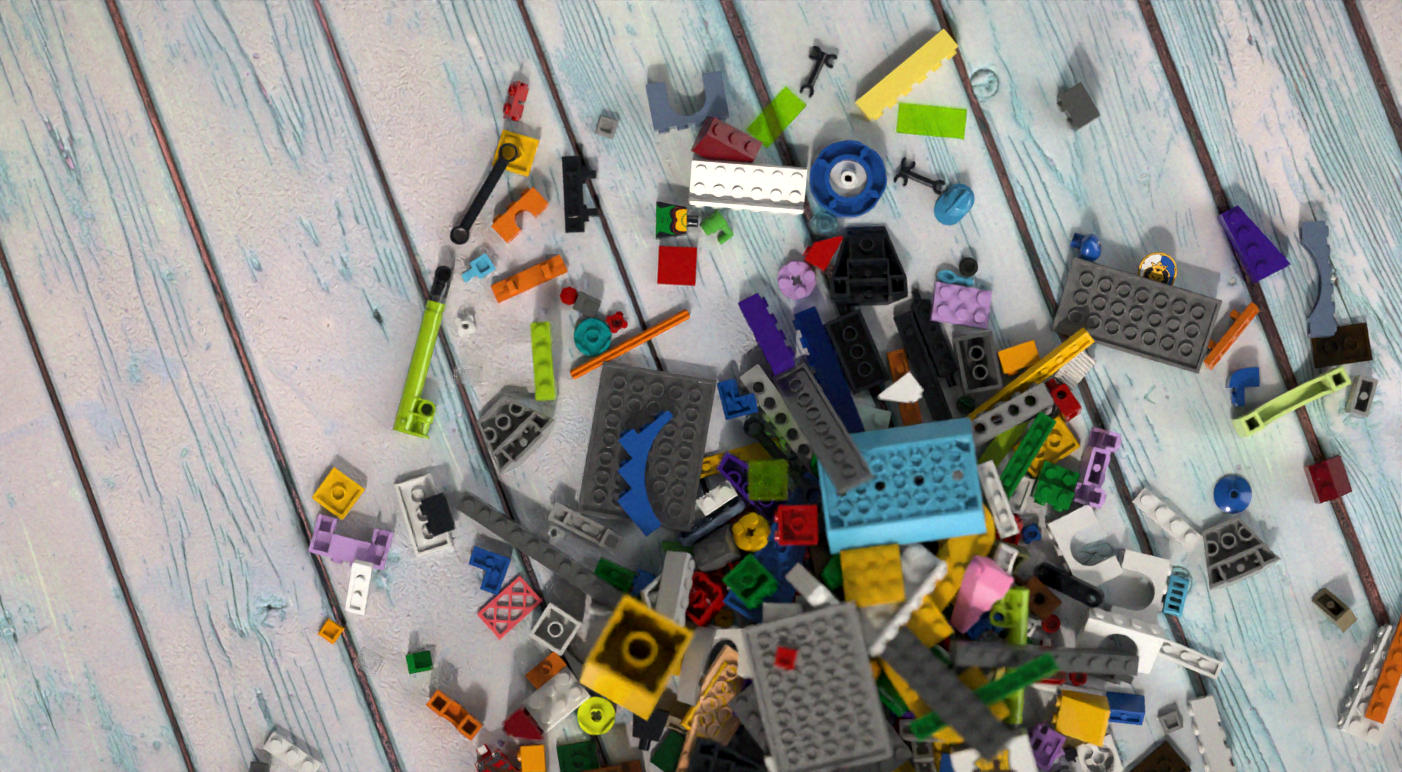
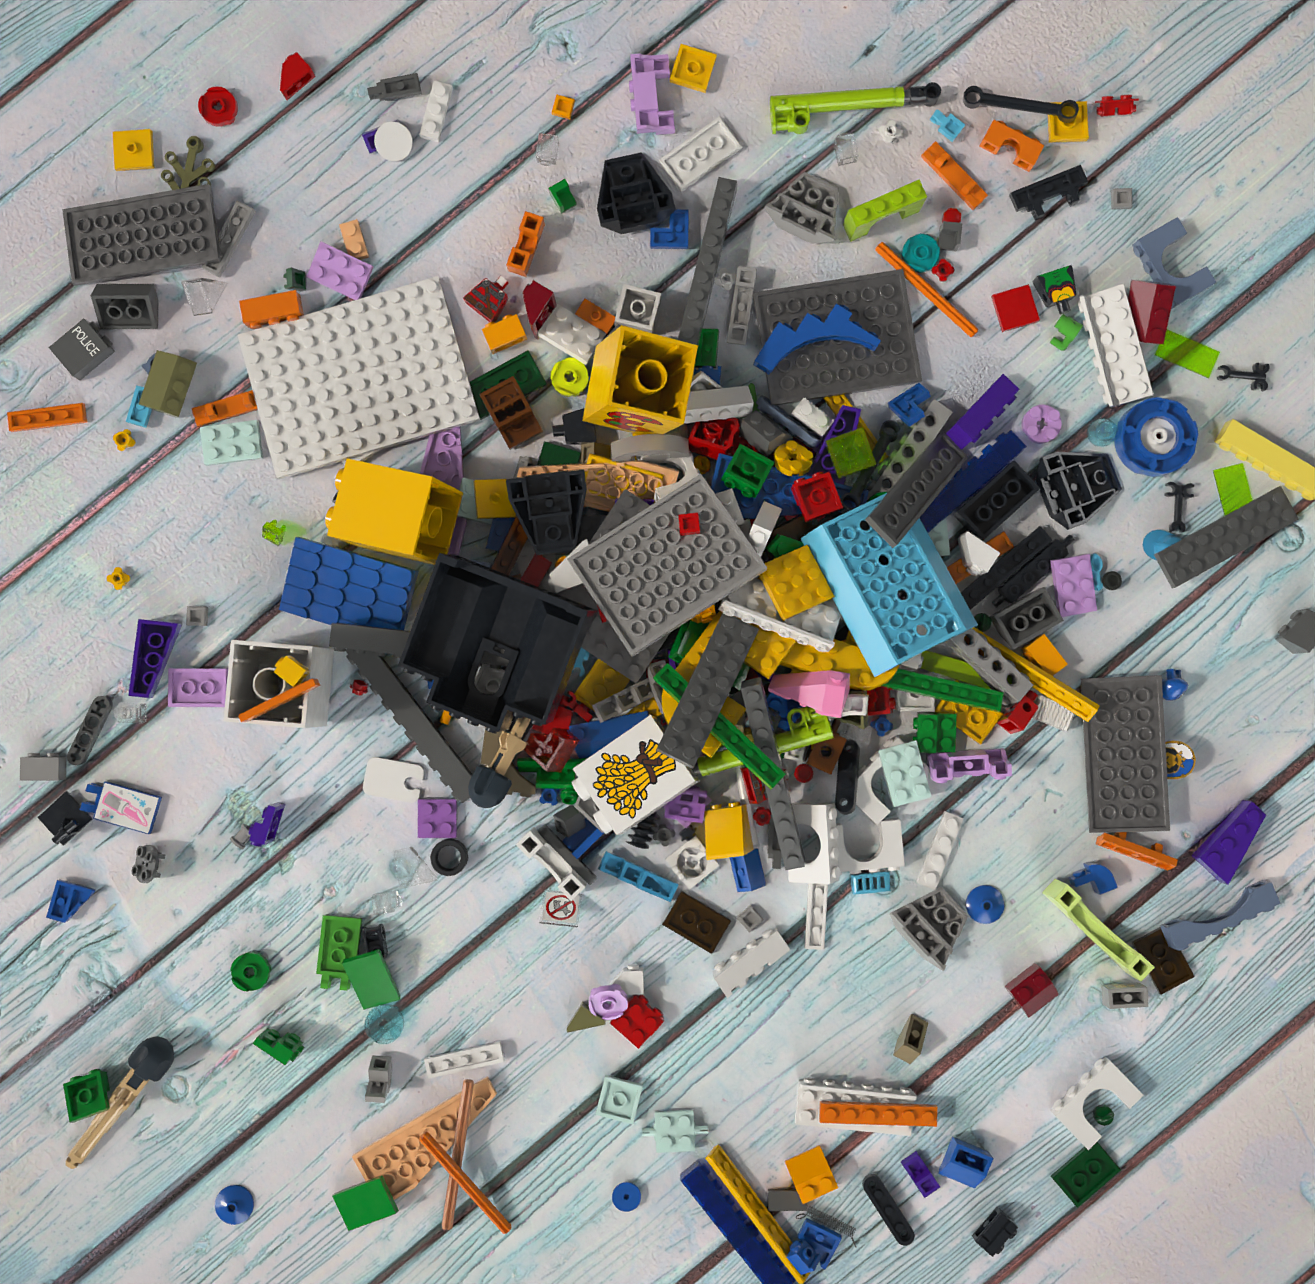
camera: 70 degrees right, 0 degrees up
(359, 586) = (613, 113): white plate -> none
(438, 514) = (706, 163): black brick -> none
(442, 595) = (632, 195): none -> black wedge
(493, 604) = (639, 248): coral window -> none
(822, 252) = (1077, 438): red slope -> none
(964, 147) = (1226, 537): none -> dark grey plate
(997, 499) = (906, 679): white tile -> none
(1084, 530) = (904, 773): none -> light aqua plate

